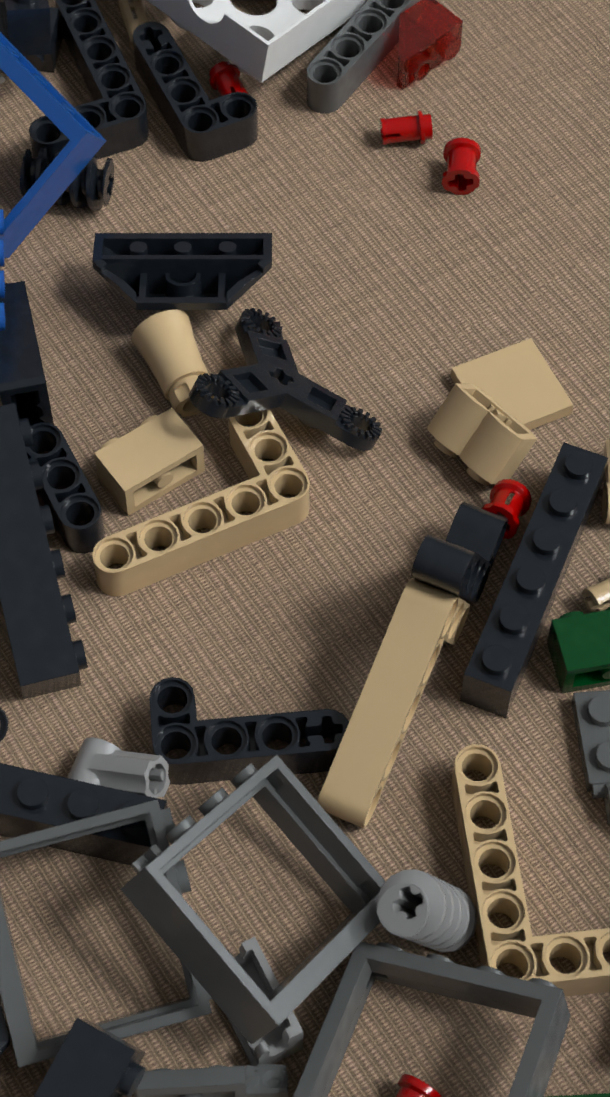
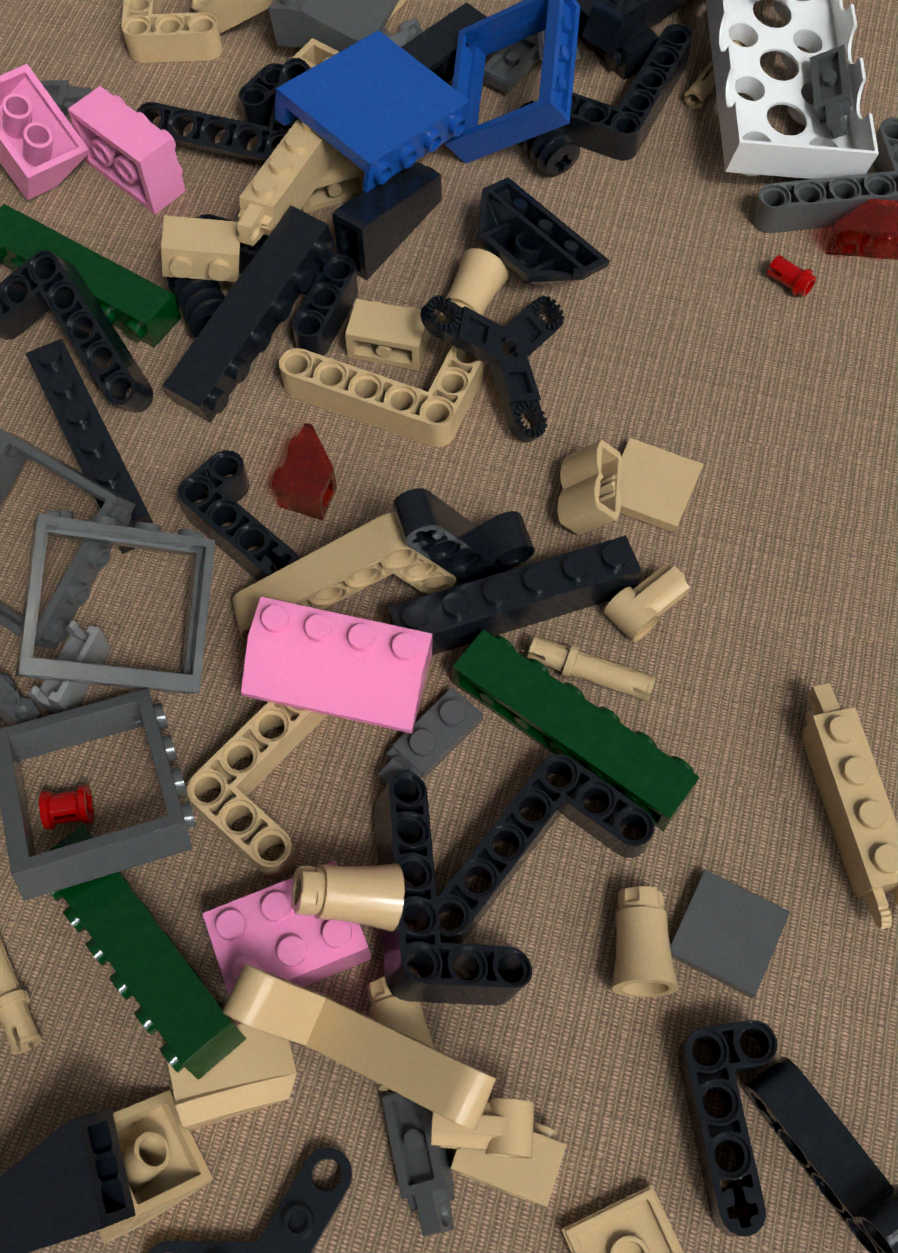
camera: 50 degrees right, 5 degrees up
(109, 766) = (155, 480): light grey piece -> none
(200, 125) = (665, 172): black beam -> none
(225, 78) = (711, 166): red pin -> none
(243, 642) = (307, 478): none -> clear red slope
(426, 911) = (194, 708): light grey piece -> none
(461, 161) = (795, 326): red bush -> none
(493, 756) = (336, 664): none -> bright pink slope
(518, 506) = (551, 542): red bush -> none

